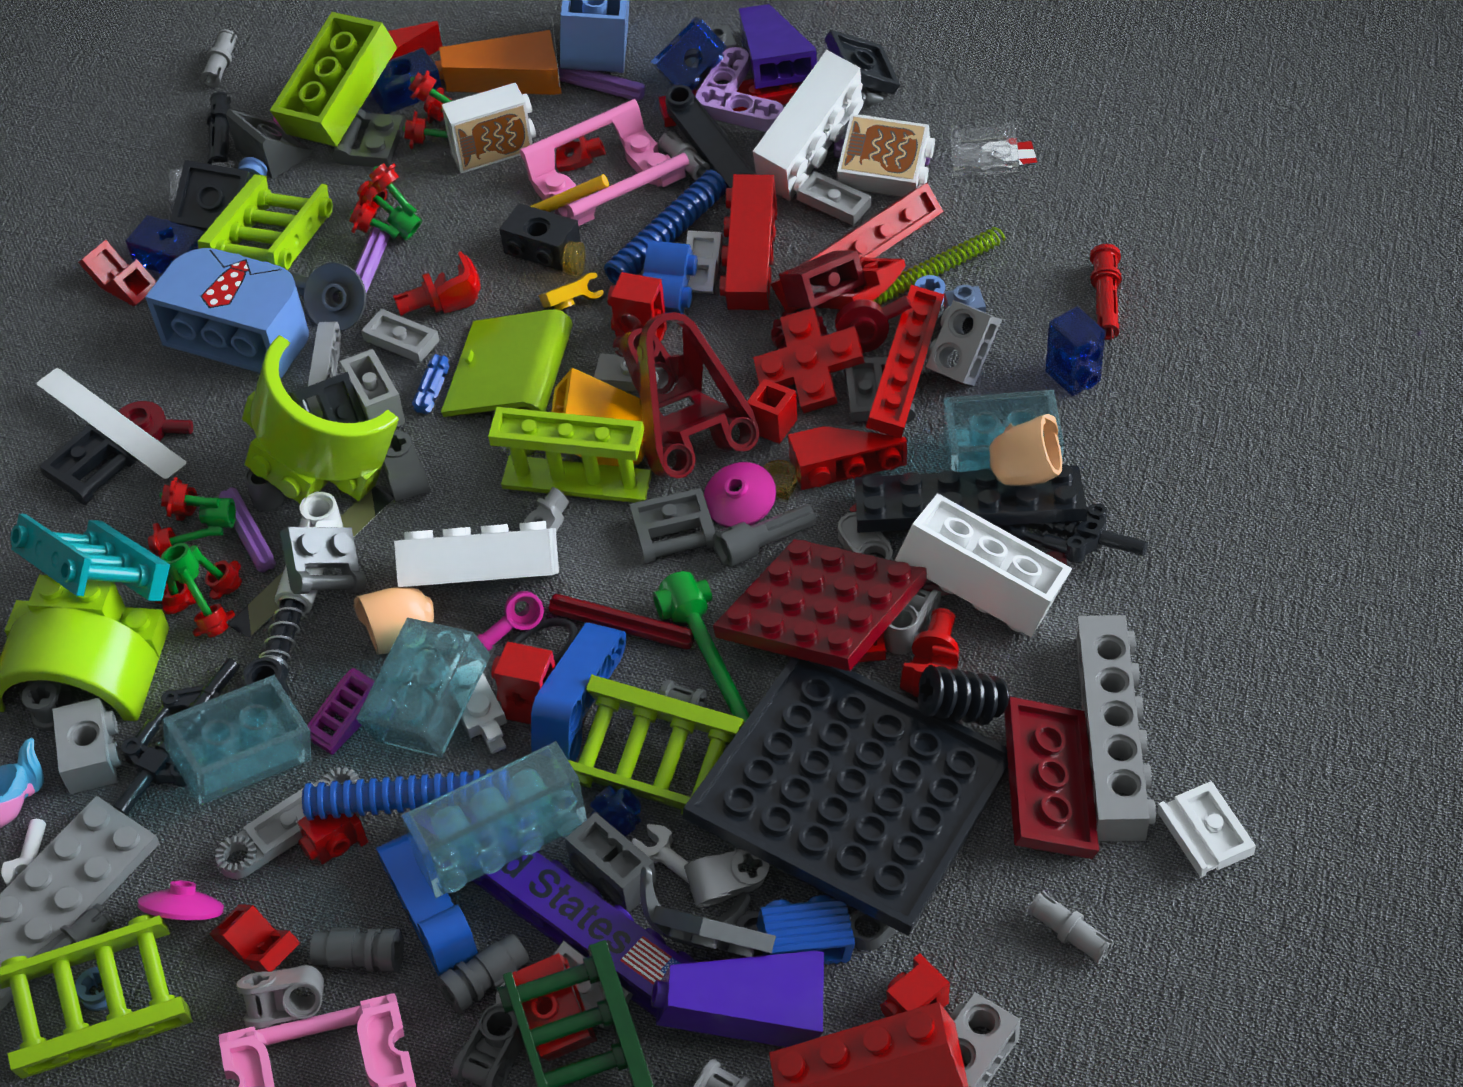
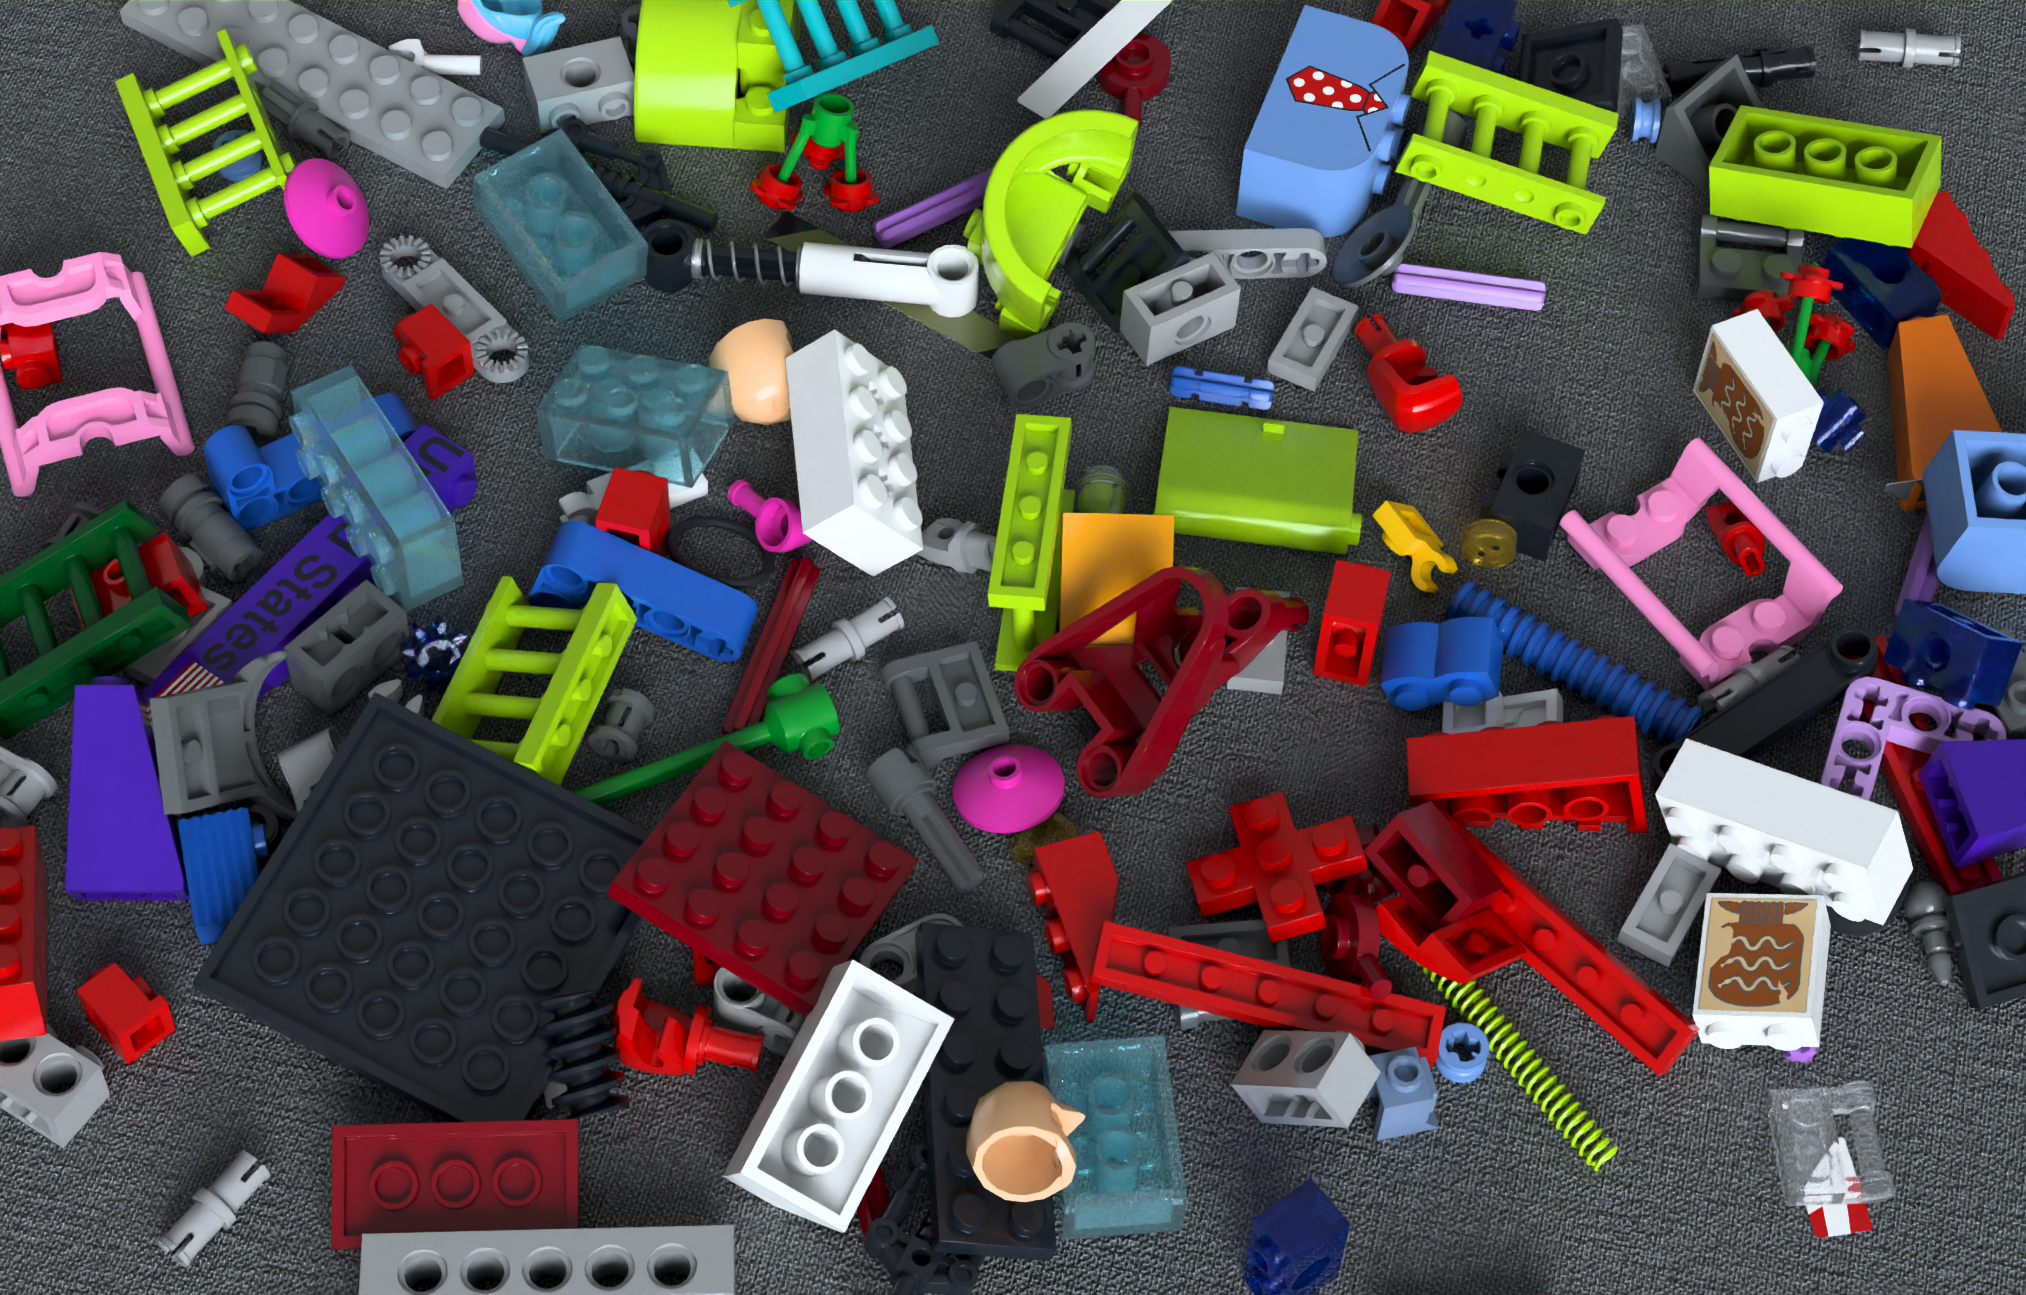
camera: 80 degrees right, 5 degrees up
(182, 502) = (945, 158): plant -> none
(271, 996) = (195, 324): light grey piece -> none
(321, 549) = (869, 272): dark grey plate -> none
(344, 692) = (644, 336): magenta slope -> none
(373, 195) = (1554, 314): plant -> none
(379, 796) = (447, 399): blue piece -> none
(573, 194) = (1609, 512): yellow bar -> none
(618, 577) = (848, 639): none -> light grey pin
(774, 410) = (1157, 813): red brick -> none

